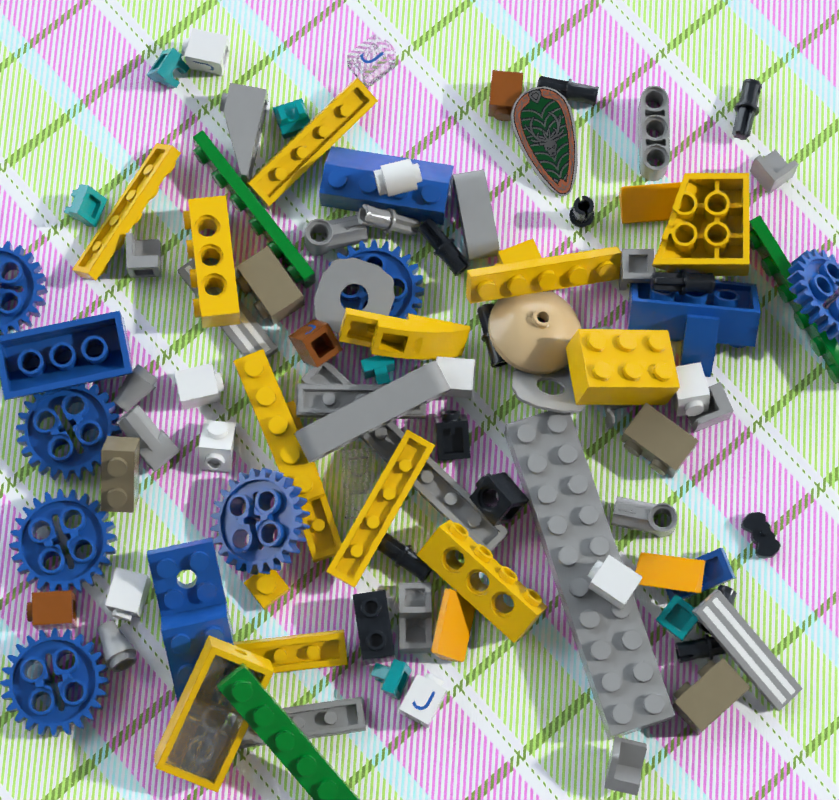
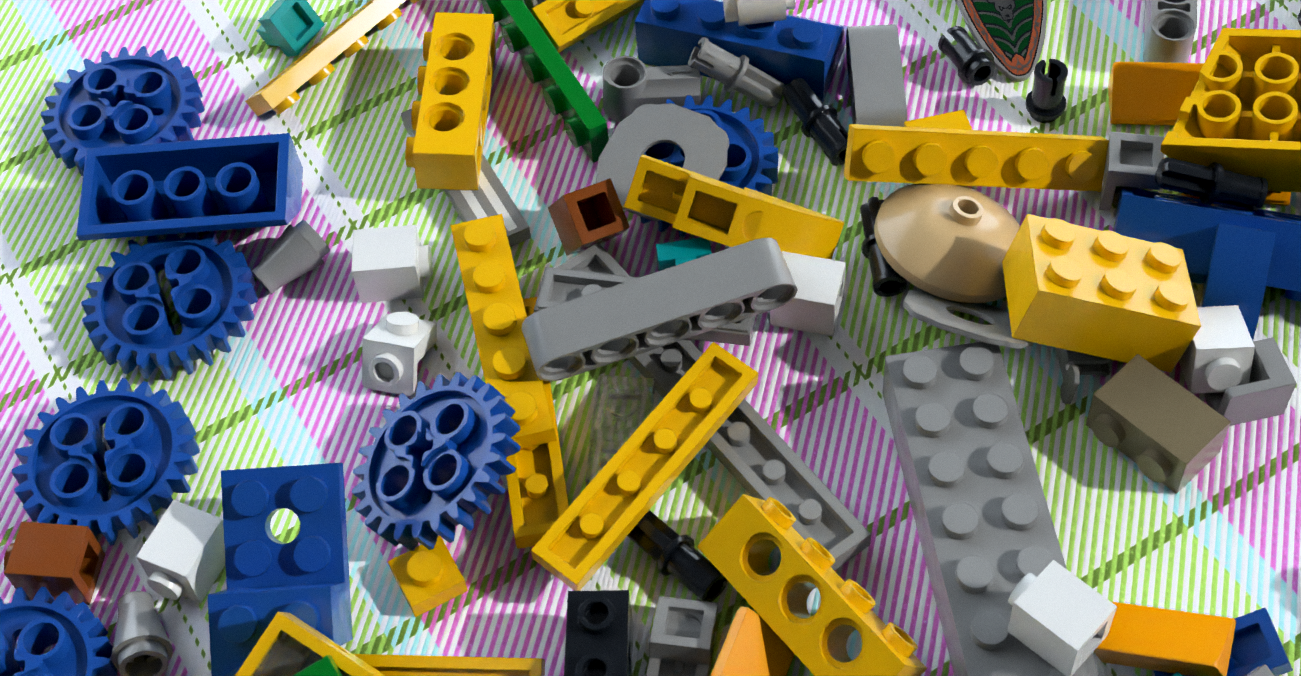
camera: 15 degrees right, 20 degrees down
(120, 474) = (223, 361): dark tan brick -> none
(143, 257) = (351, 98): light grey panel -> none
(155, 444) = (292, 334): light grey piece -> none
(269, 285) = (535, 143): dark tan brick -> none
(452, 435) = (791, 378): black bracket -> none
(509, 502) = (859, 476): black brick -> none
(530, 185) = (973, 64): none -> black pin
(640, 515) = (1120, 539): light grey piece -> none

